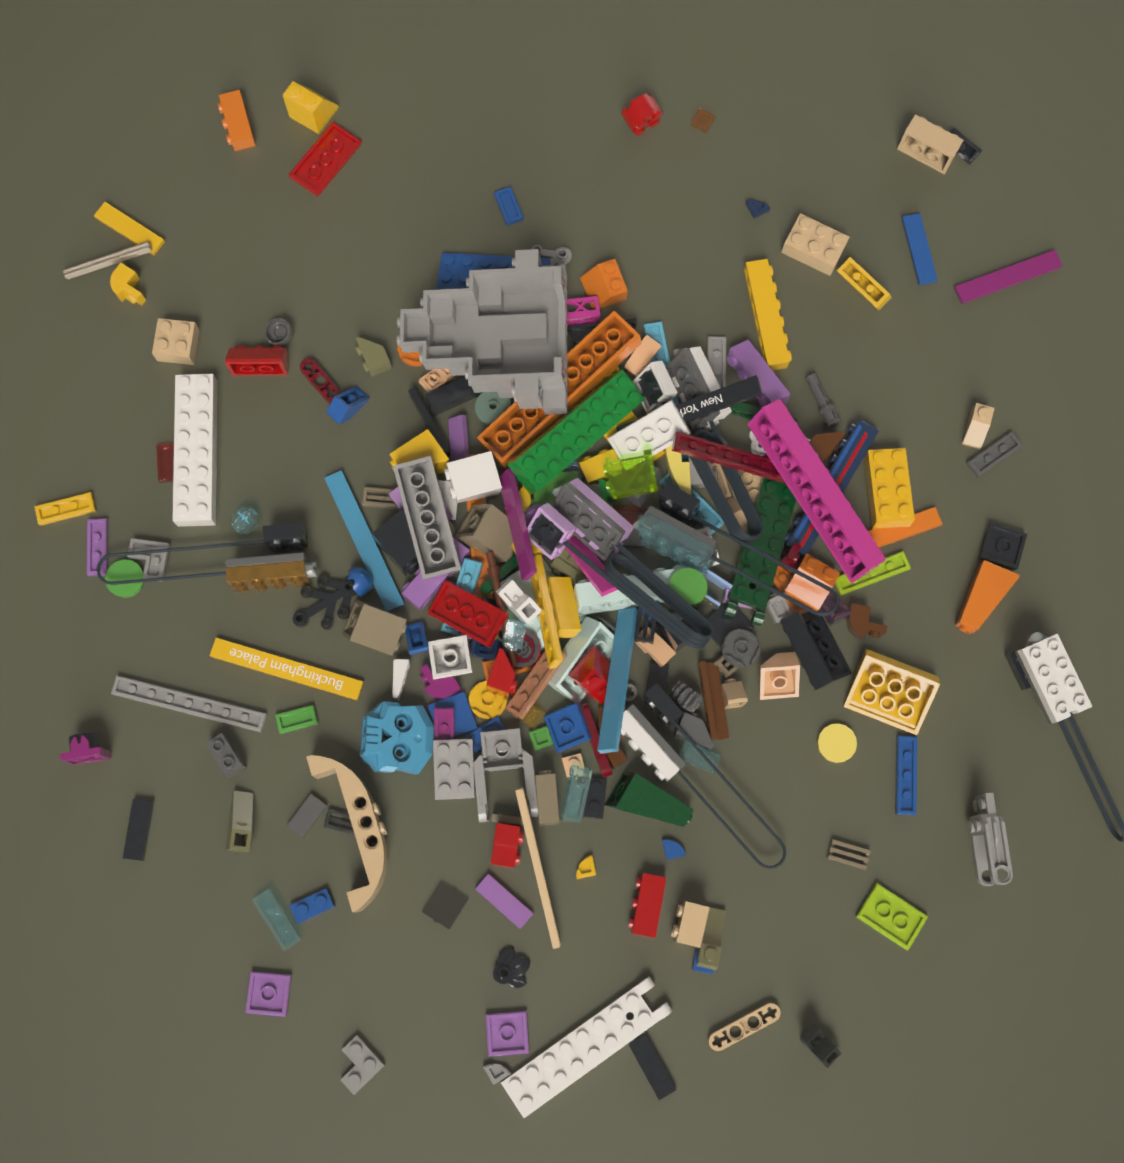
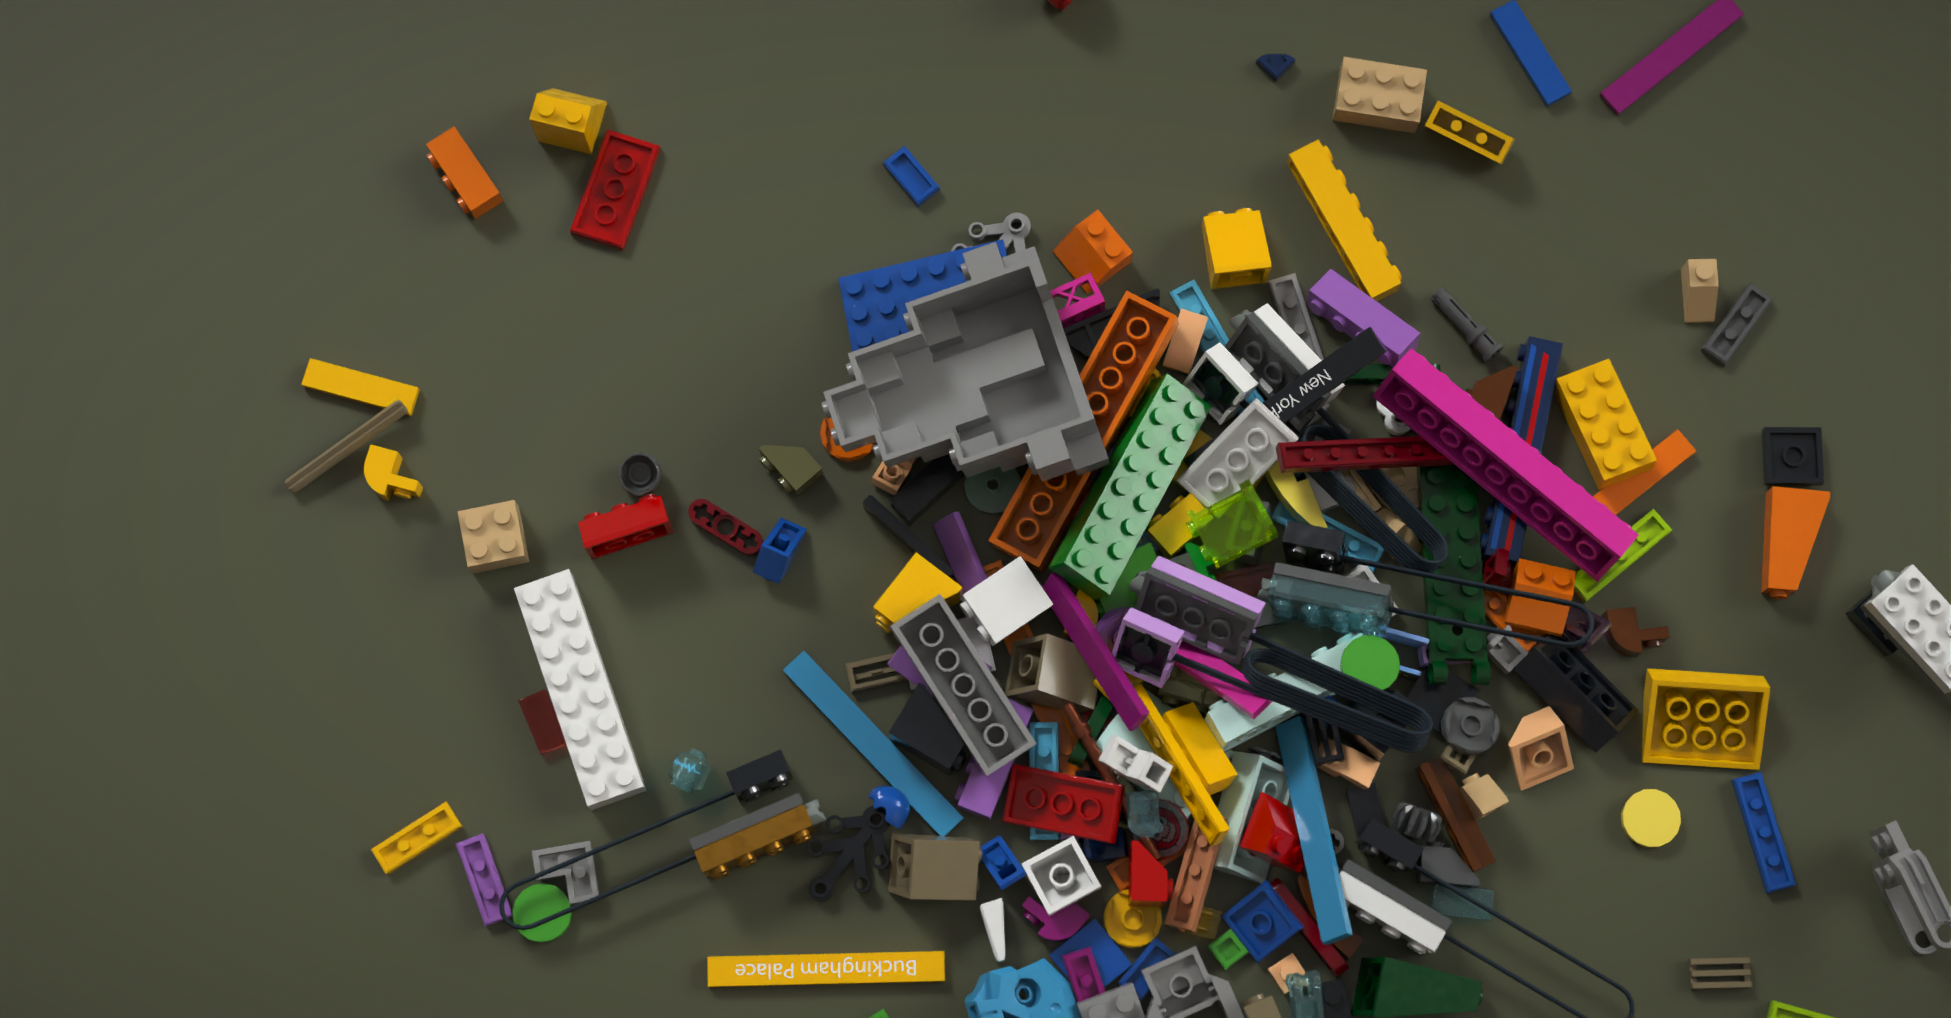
camera: 15 degrees left, 0 degrees up
(693, 310) = (1236, 248): none -> yellow slope

